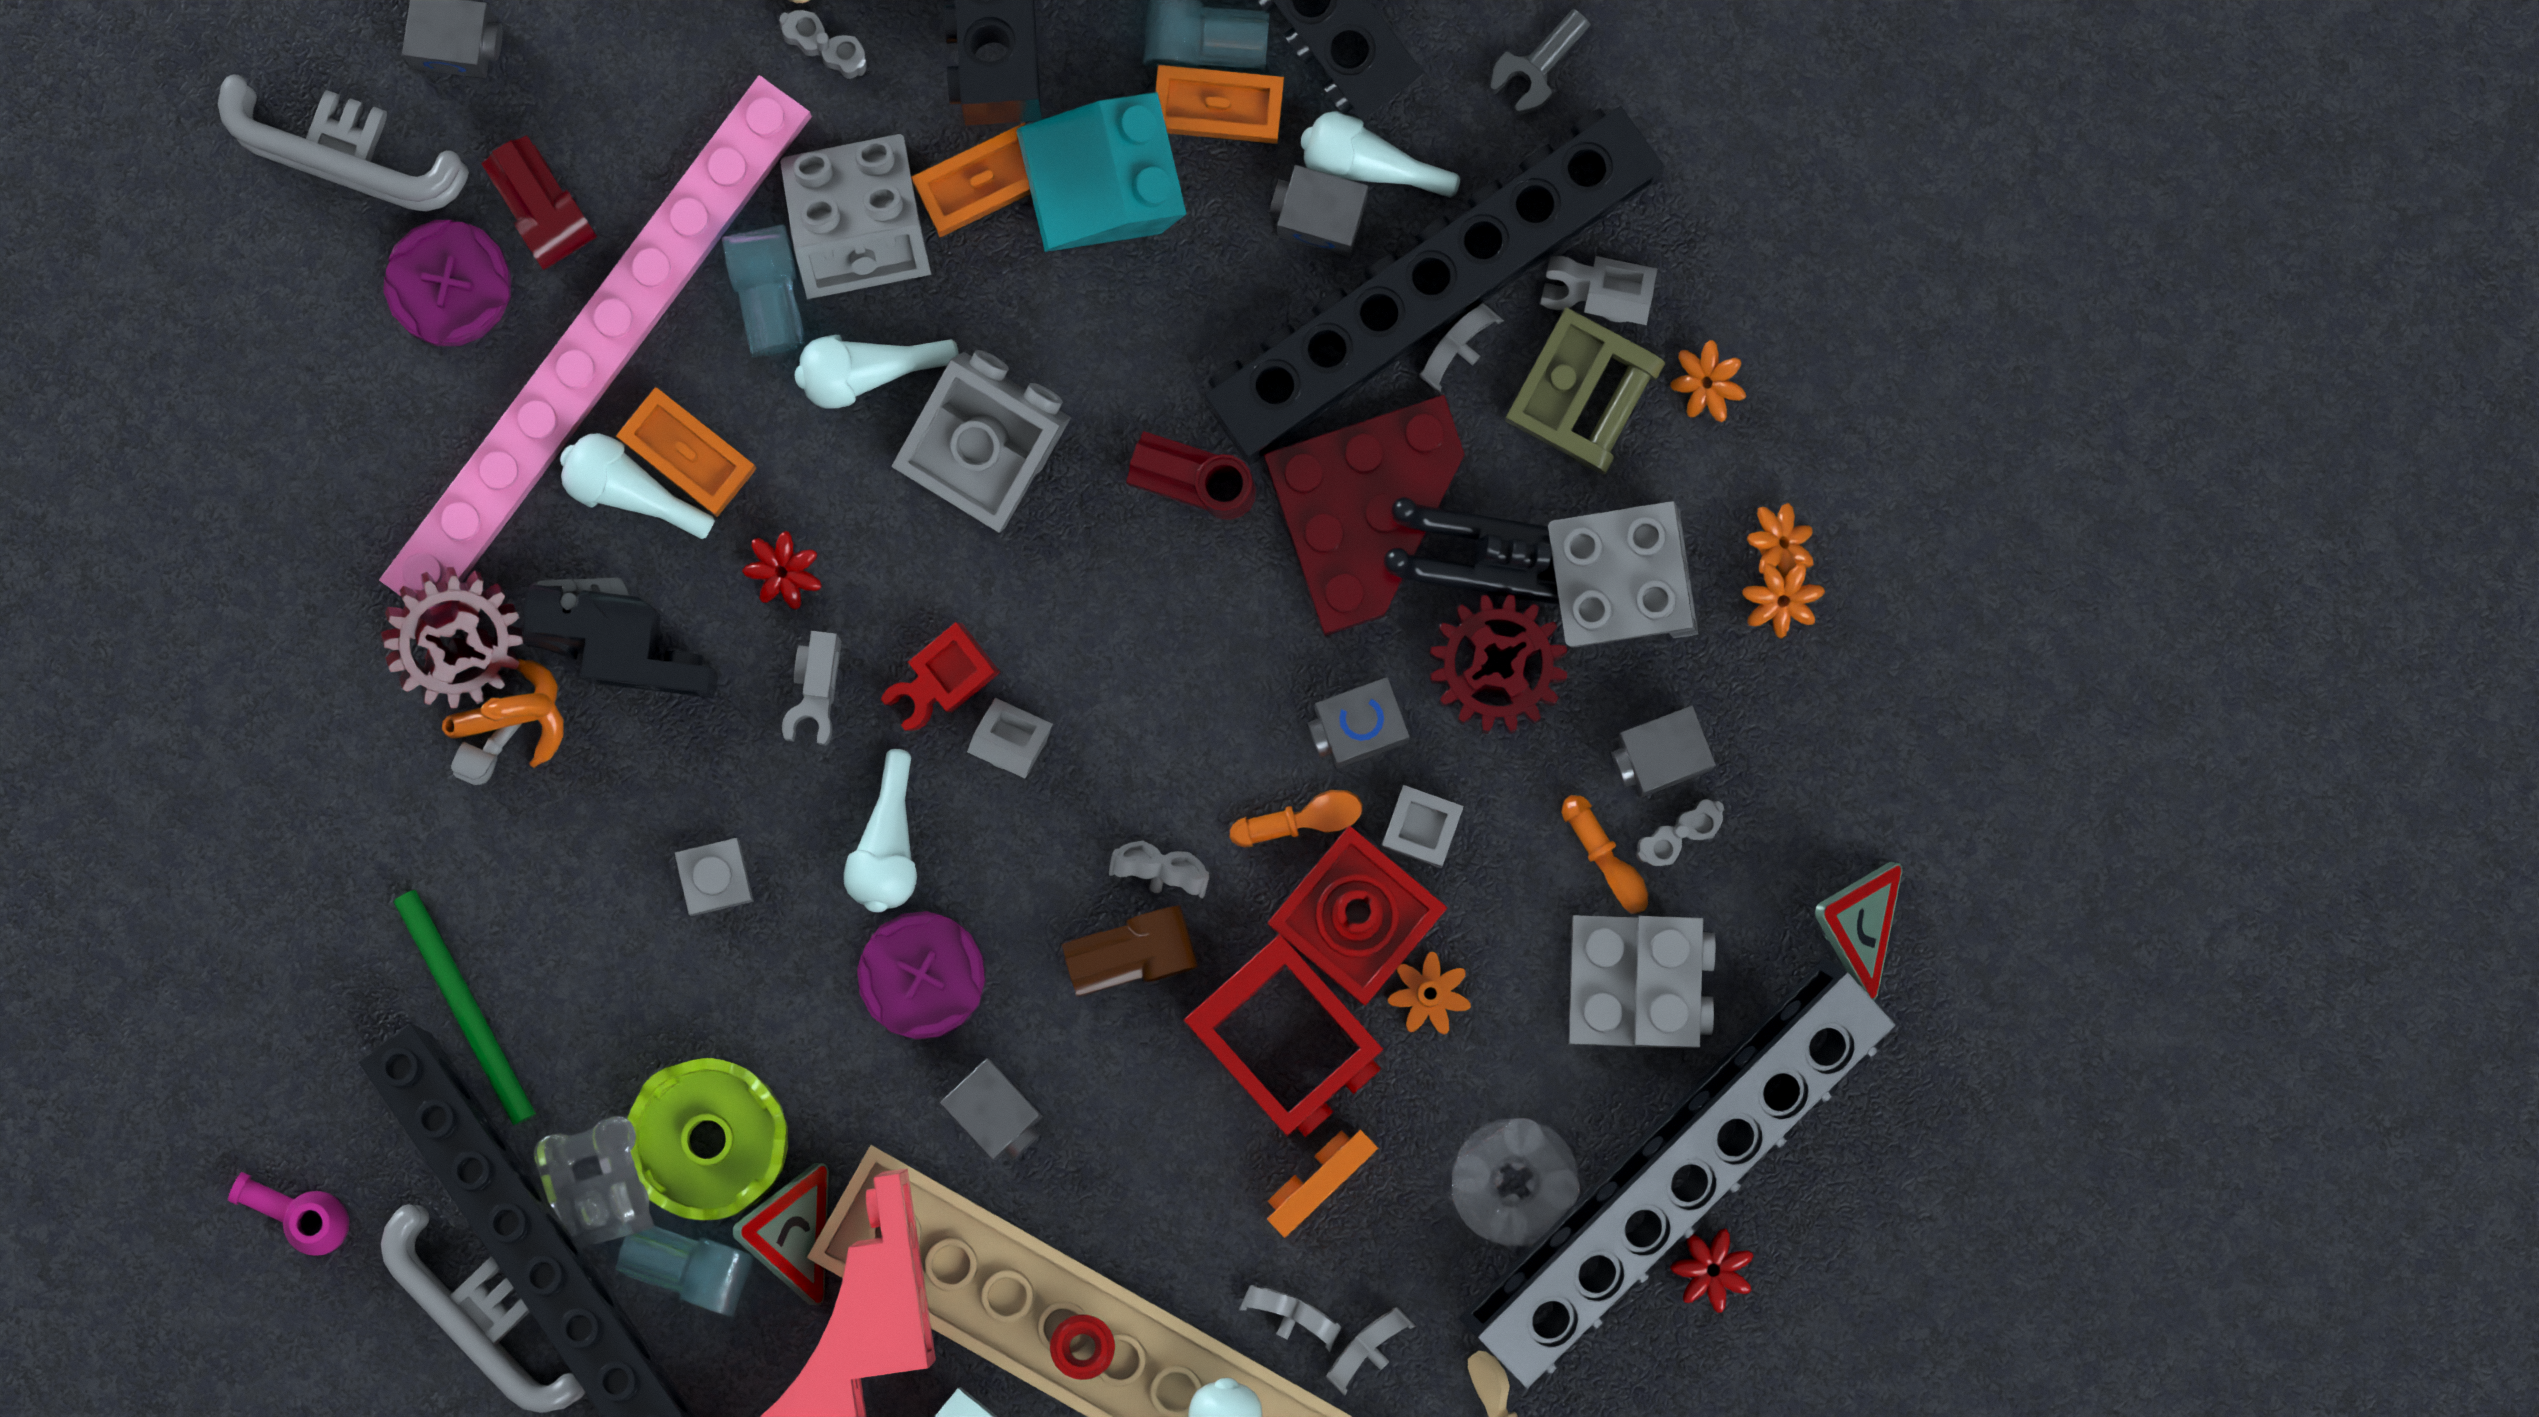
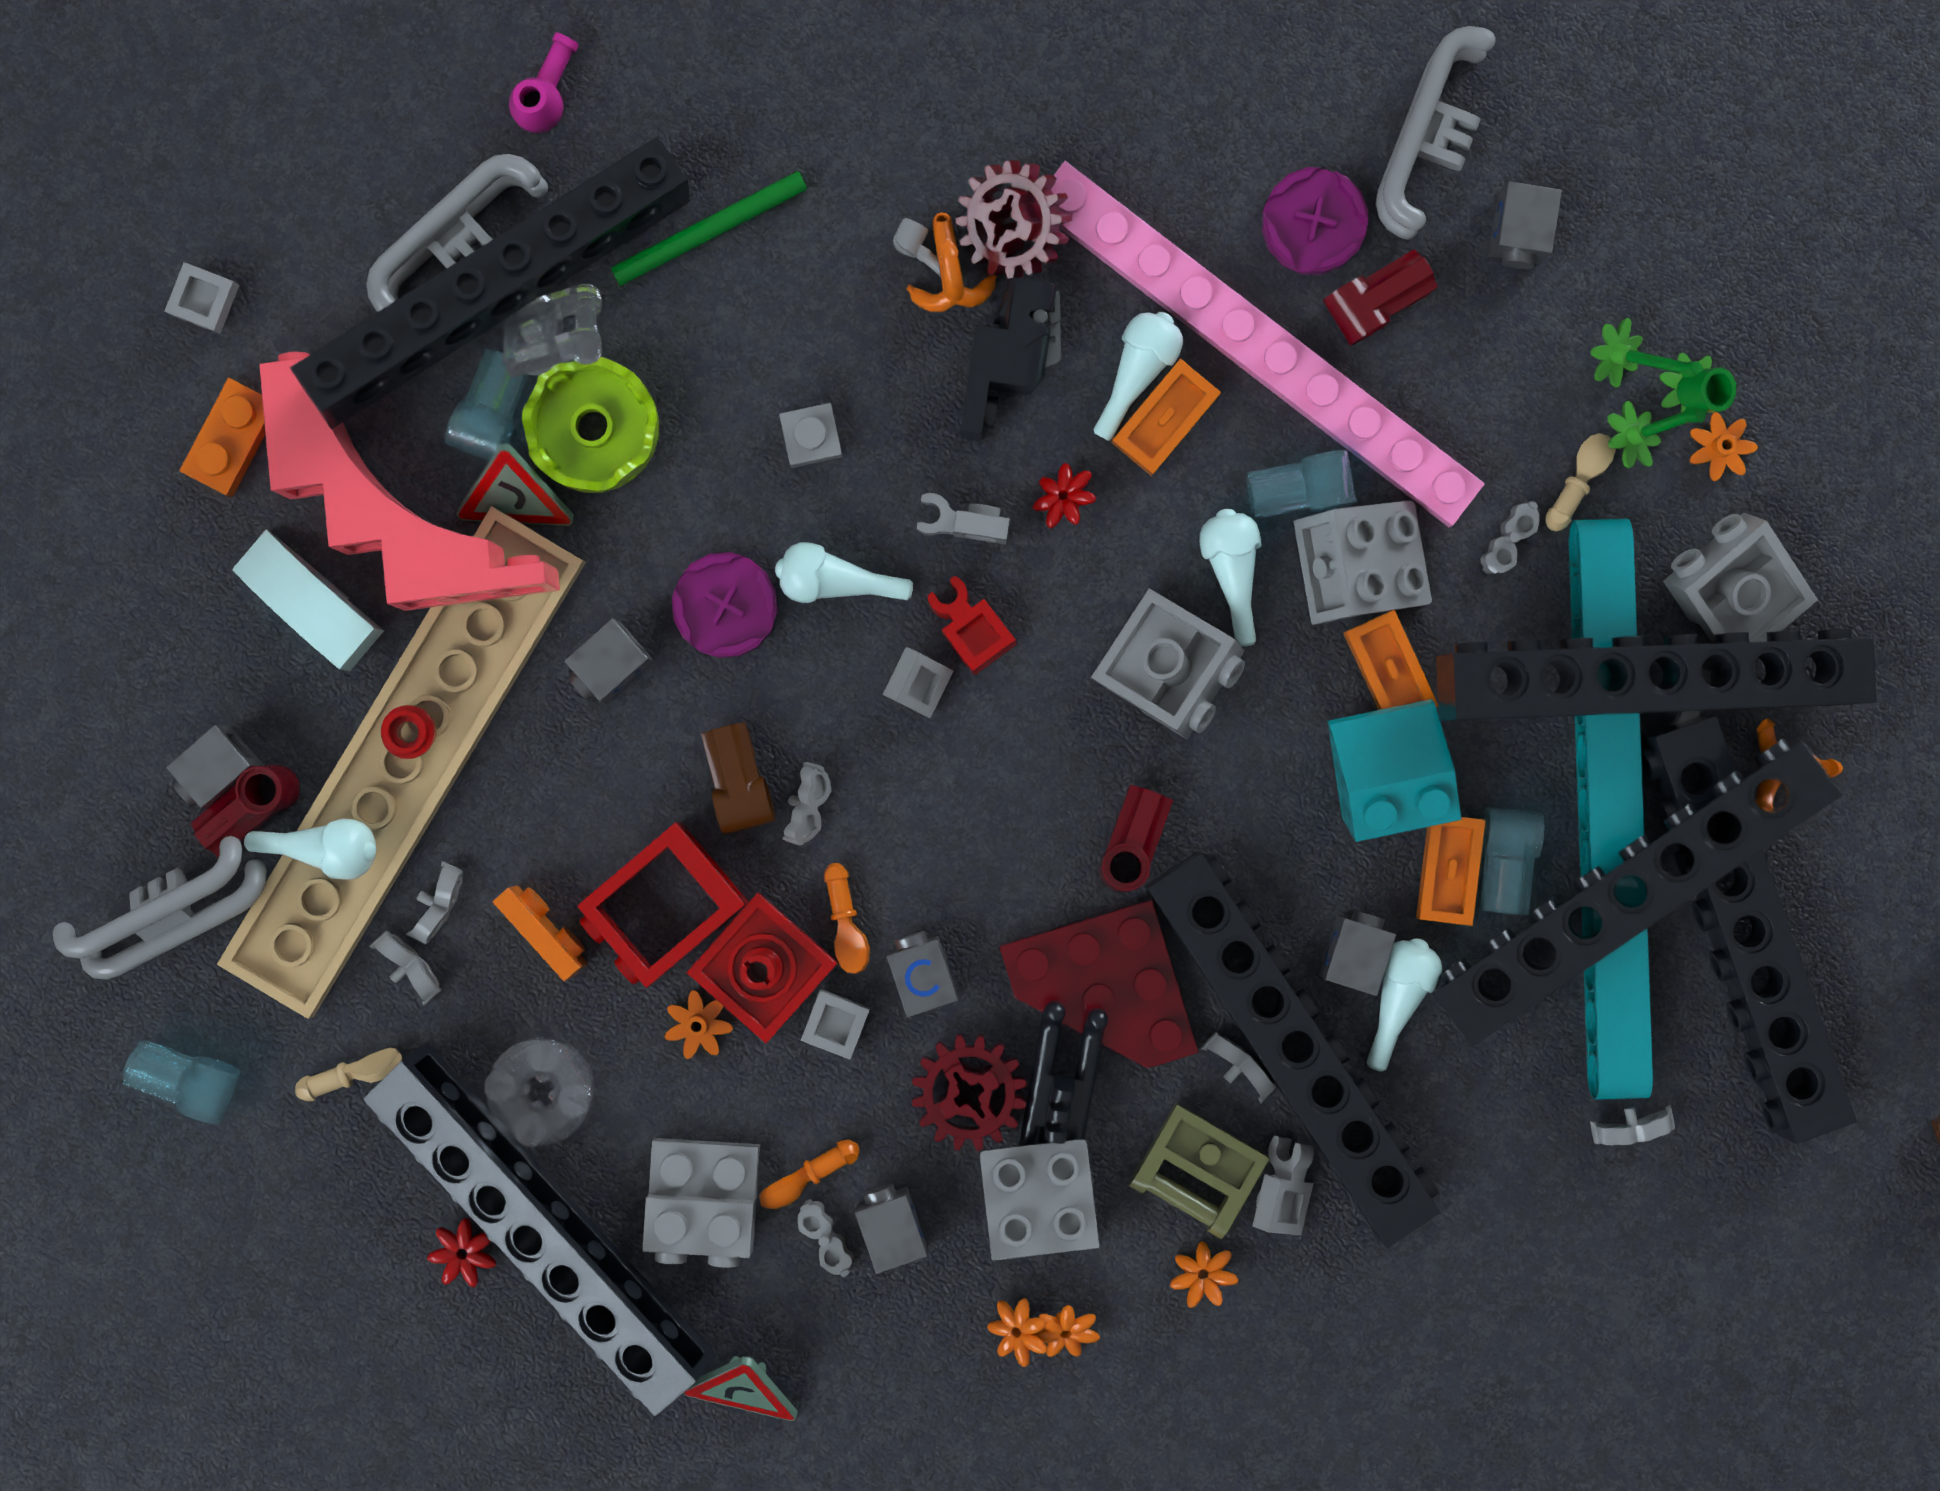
camera: 90 degrees right, 5 degrees up
(1539, 63) = (1477, 1138): dark grey bar -> none

